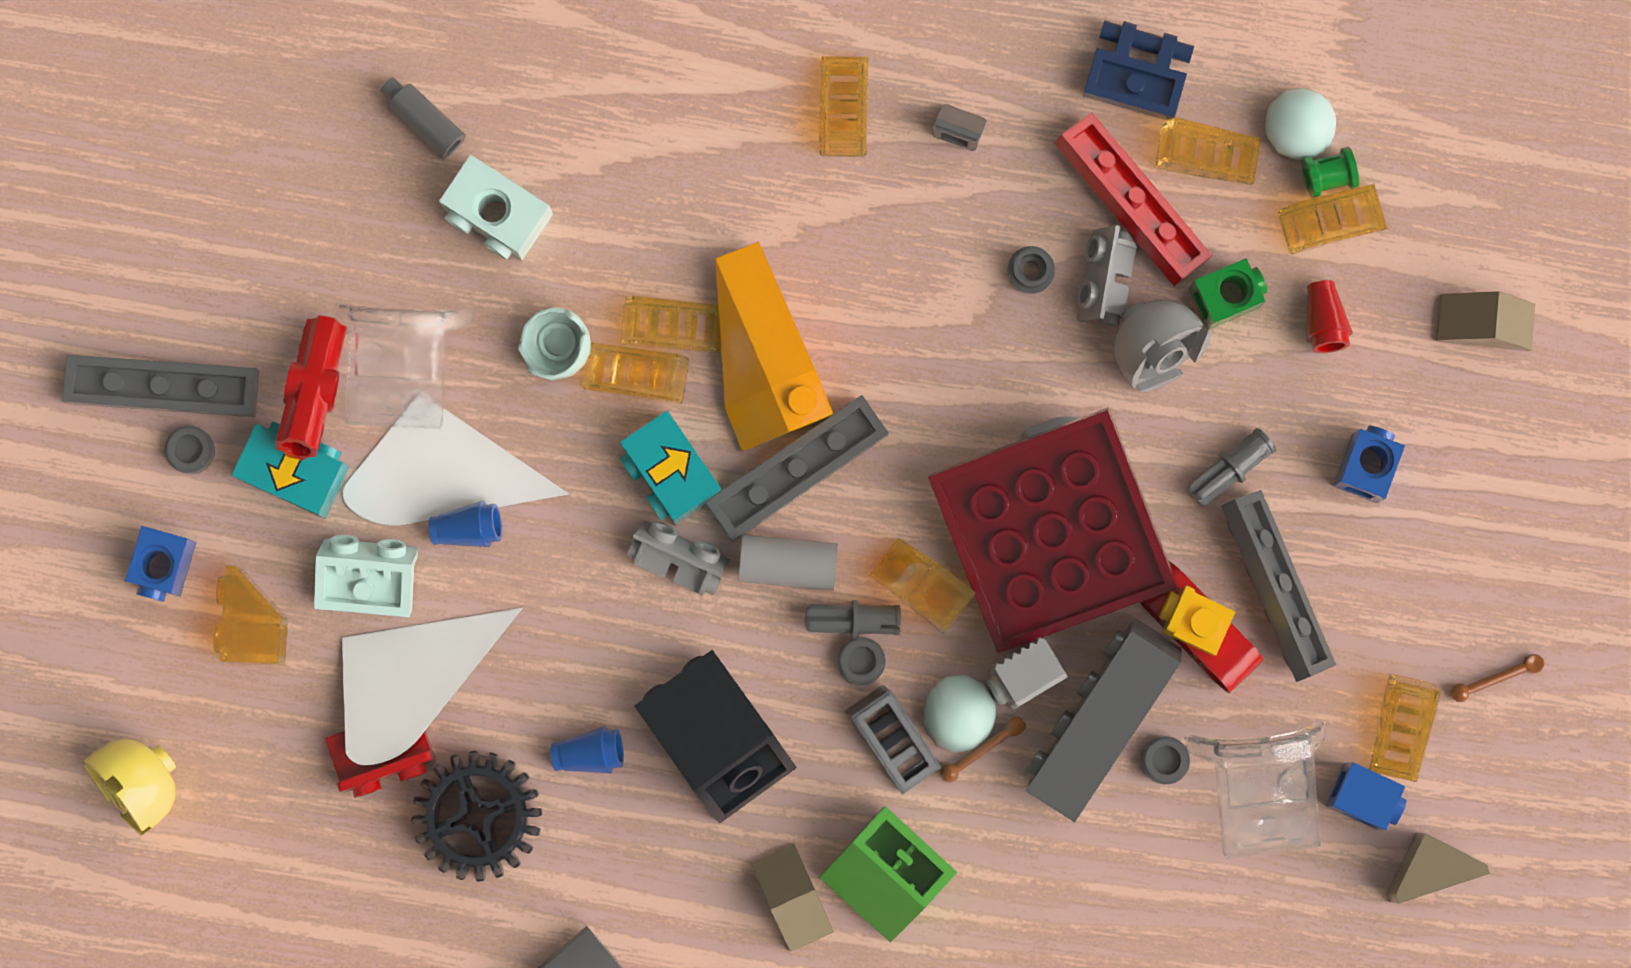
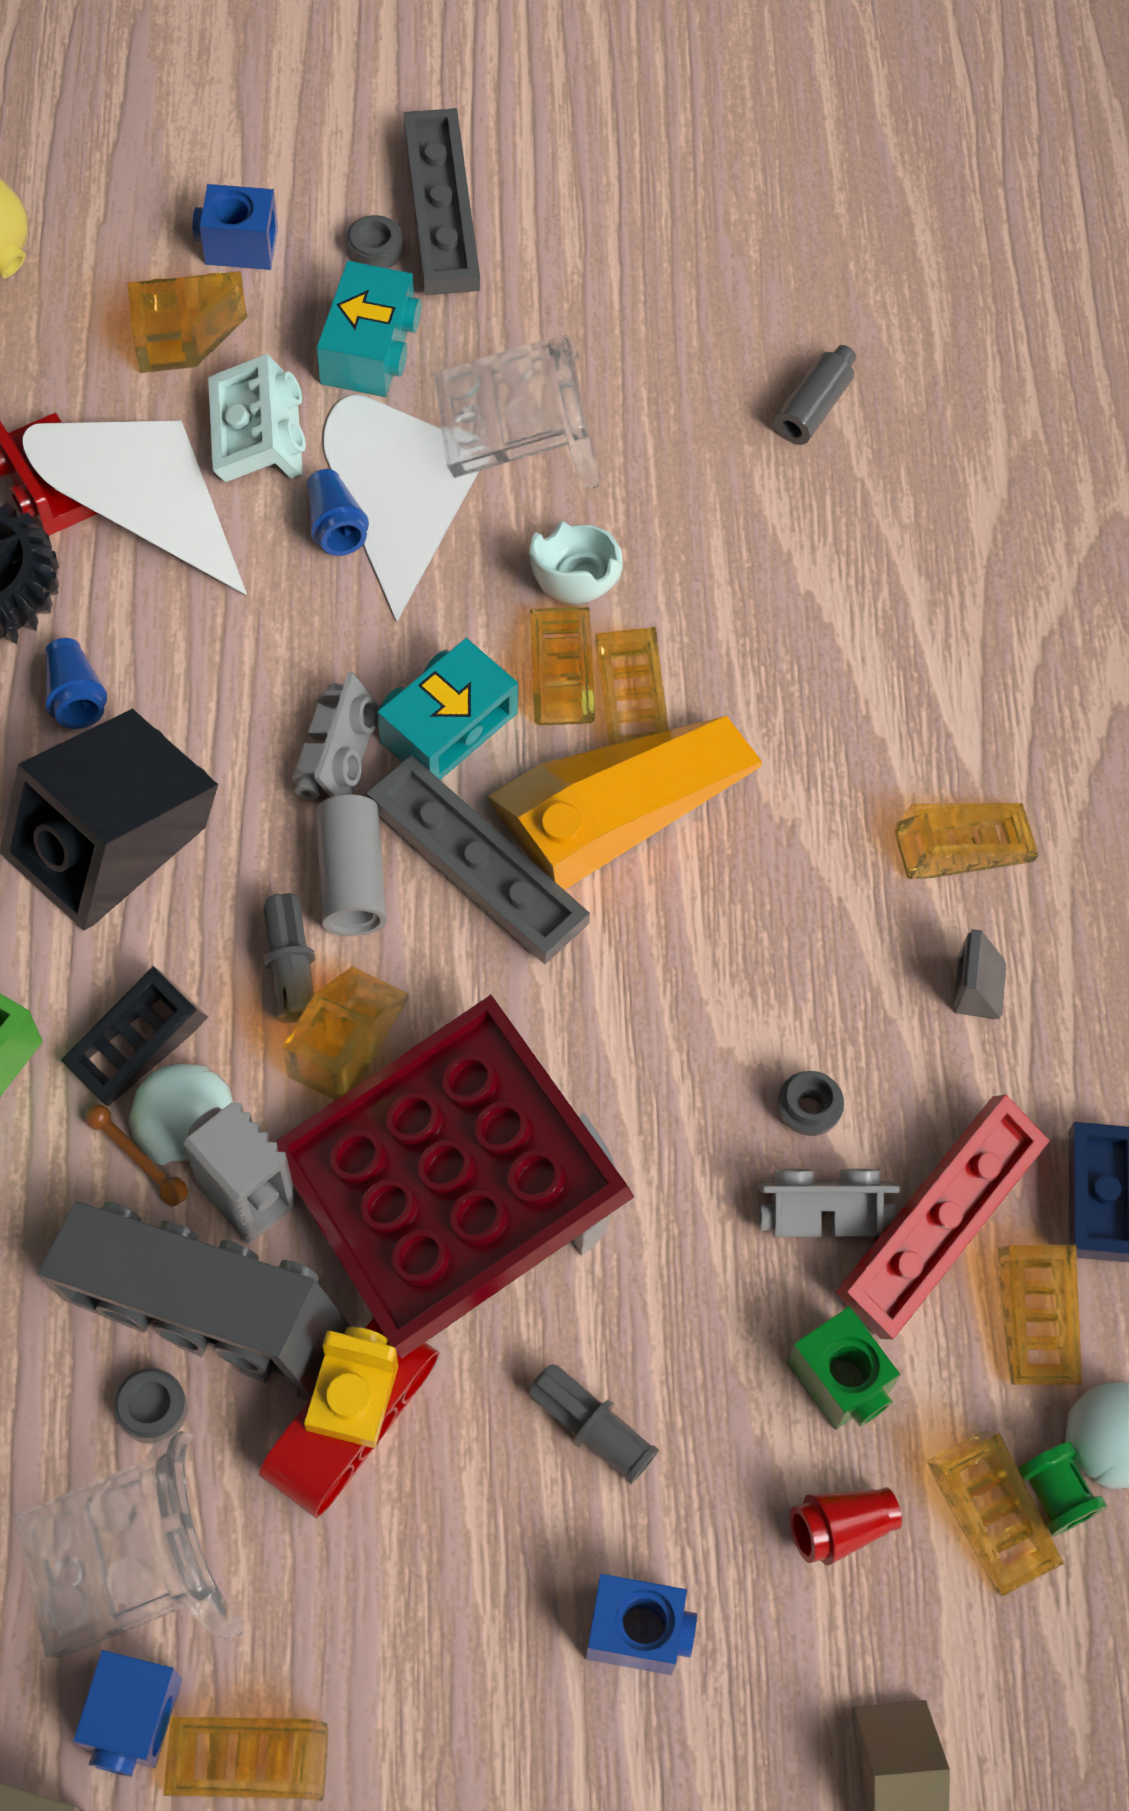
camera: 80 degrees right, 20 degrees down
(311, 387) = (460, 316): red piece -> none
(480, 185) = (720, 506): light aqua brick -> none
(861, 661) = (235, 982): dark grey tile -> none
(1156, 341) = (745, 1278): light grey cylinder -> none
(1278, 585) = (428, 1520): dark grey plate -> none

